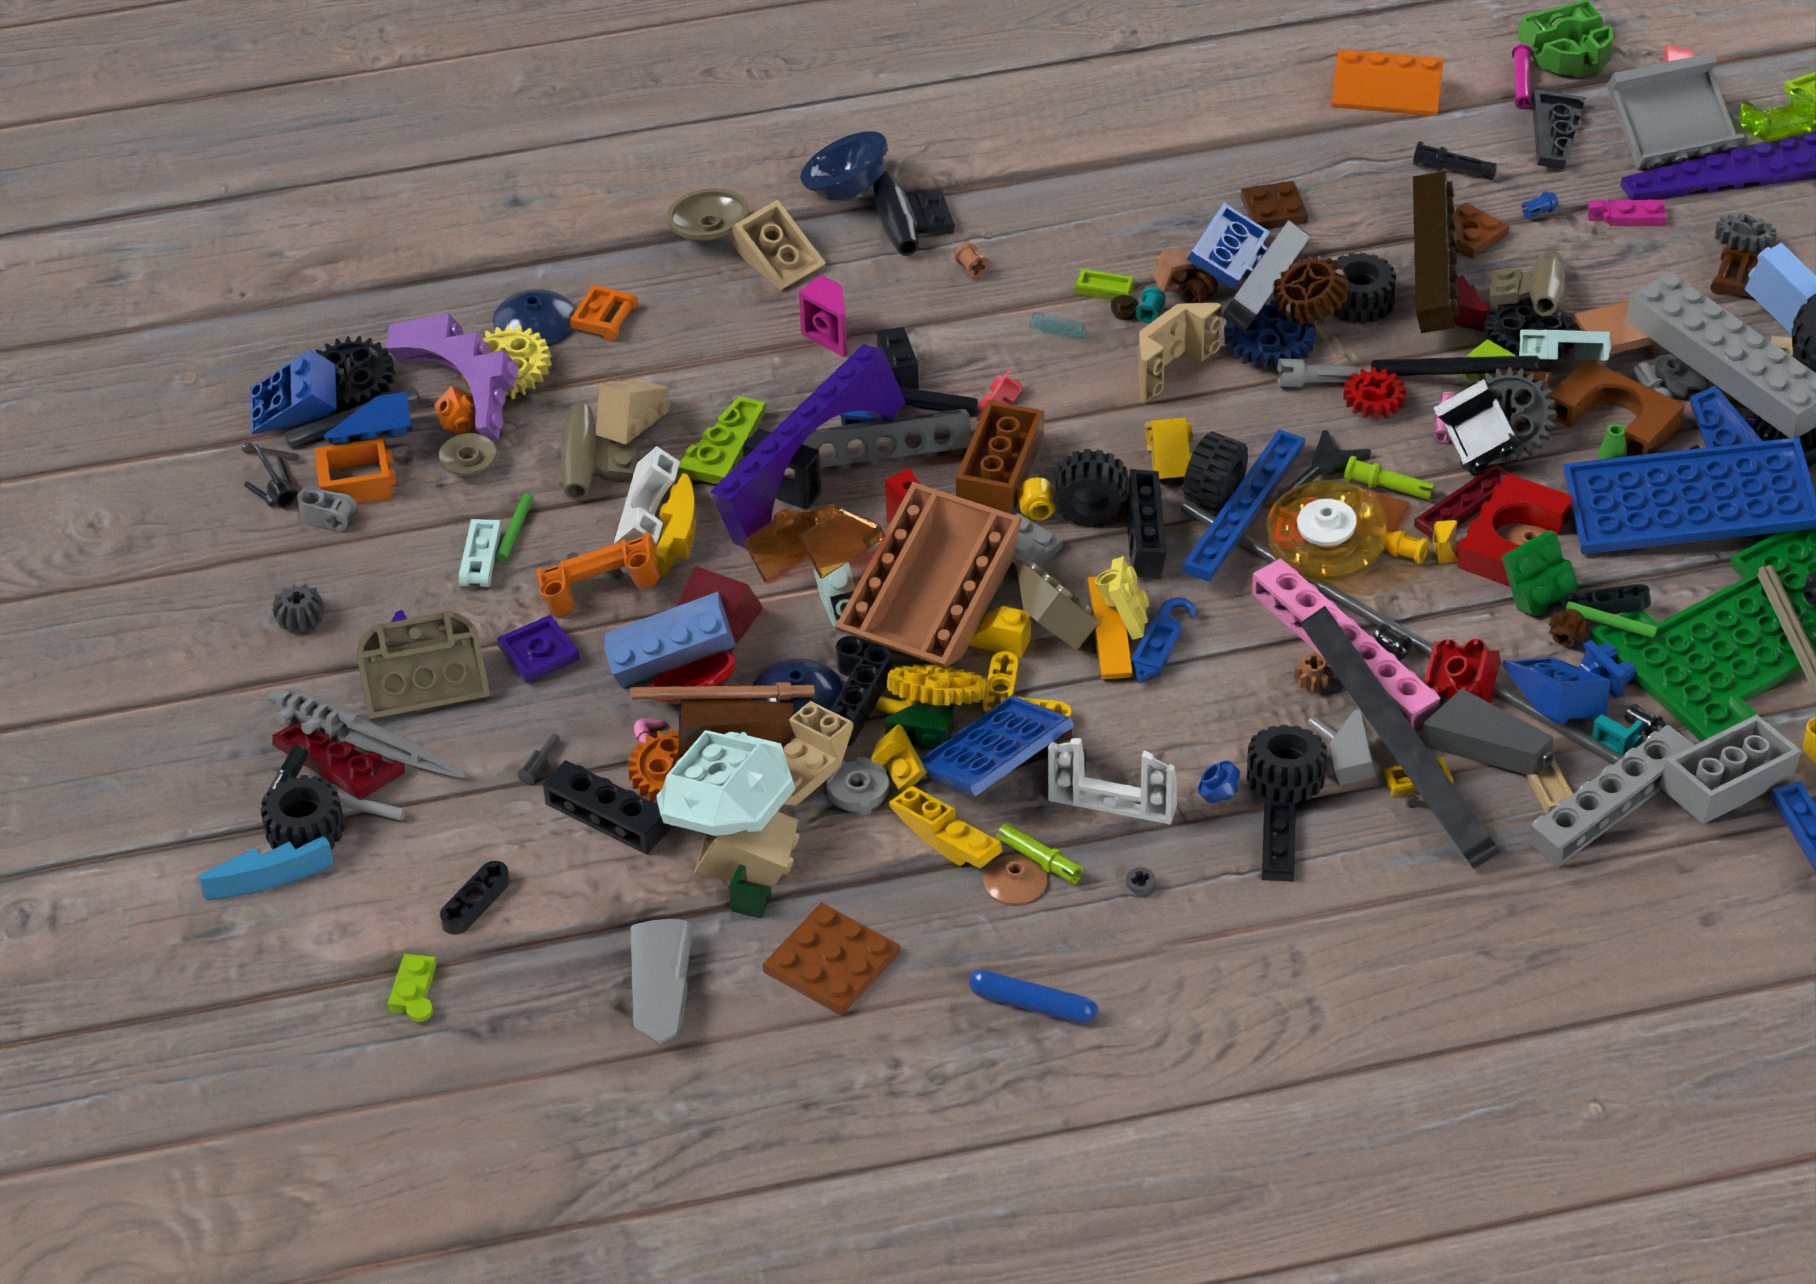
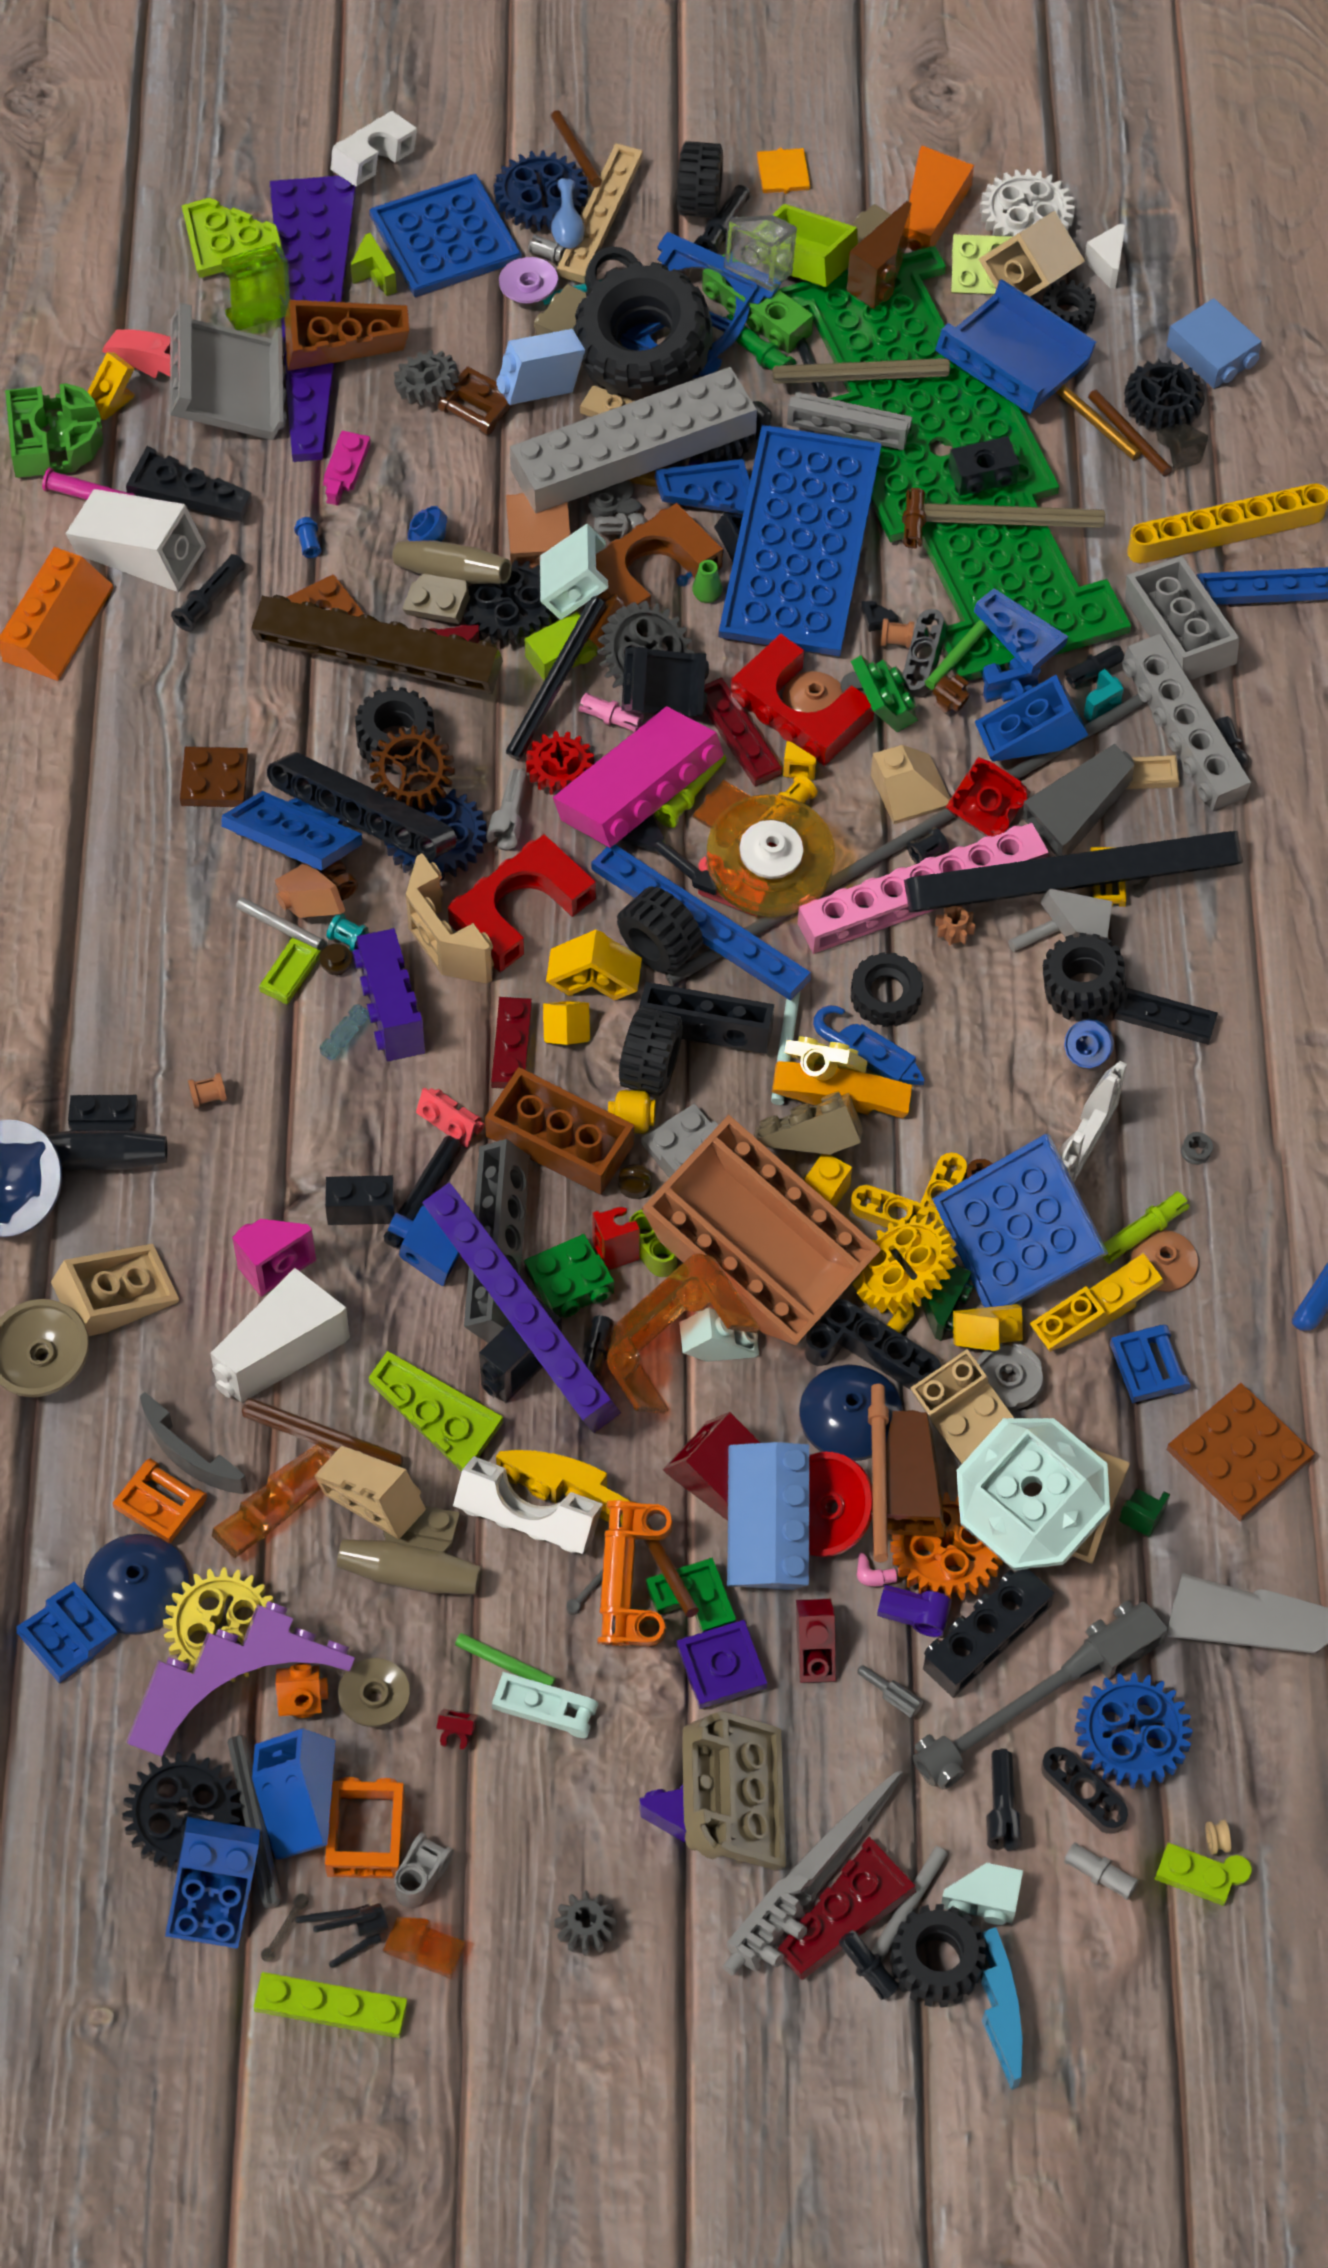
camera: 80 degrees left, 15 degrees up
(213, 488) = (330, 2005): none -> lime plate
(266, 529) = (425, 1947): none -> clear orange slope
(366, 844) = (986, 1893): none -> light aqua slope
(400, 916) = (1101, 1871): none -> light grey pin
(429, 843) = (1003, 1819): none -> black piece
(446, 989) = (1218, 1837): none -> tan bush
(450, 506) = (456, 1723): none -> dark red tile
(483, 289) = (66, 1632): none -> blue slope
(554, 906) = (1142, 1759): none -> blue gear
(572, 698) = (815, 1640): none -> dark red slope
(600, 617) = (705, 1589): none -> green plate
(604, 889) = (1107, 1648): none -> dark grey bar
(609, 594) = (671, 1576): none -> reddish brown bar
(610, 366) = (273, 1503): none -> clear orange slope
(615, 755) = (923, 1611): none -> dark purple piece
(664, 295) = (218, 1473): none -> dark grey slope
(684, 388) = (313, 1431): none -> reddish brown axle
(754, 333) = (279, 1337): none -> white slope
(862, 494) = (570, 1276): none -> green plate
(897, 870) = (1139, 1365): none -> blue plate
(1085, 423) = (511, 1039): none -> dark red plate
(1091, 336) = (391, 997): none -> dark purple wedge
(1116, 442) = (566, 1022): none -> yellow panel
(1147, 270) = (279, 923): none -> light grey bar
(1170, 587) = (787, 1033): none -> light aqua bar
(1203, 374) = (538, 867): none -> red arch
(1227, 622) = (886, 1012): none -> black tyre
(1376, 436) = (638, 776): none -> dark pink brick
(1458, 613) = (908, 783): none -> tan slope
(1484, 110) = (138, 537): none -> white slope
(1583, 267) = (428, 525): none -> blue plate
(1597, 850) = (1228, 731): none -> black axle
(1619, 575) = (897, 633): none -> nougat bush
(1632, 58) = (110, 385): none -> yellow slope
(1639, 570) = (875, 614): none -> black tile
(1654, 654) = (1019, 630): none -> blue wing
(1751, 561) = (914, 518): none -> reddish brown pin
(1756, 166) = (342, 331): none -> dark orange wedge

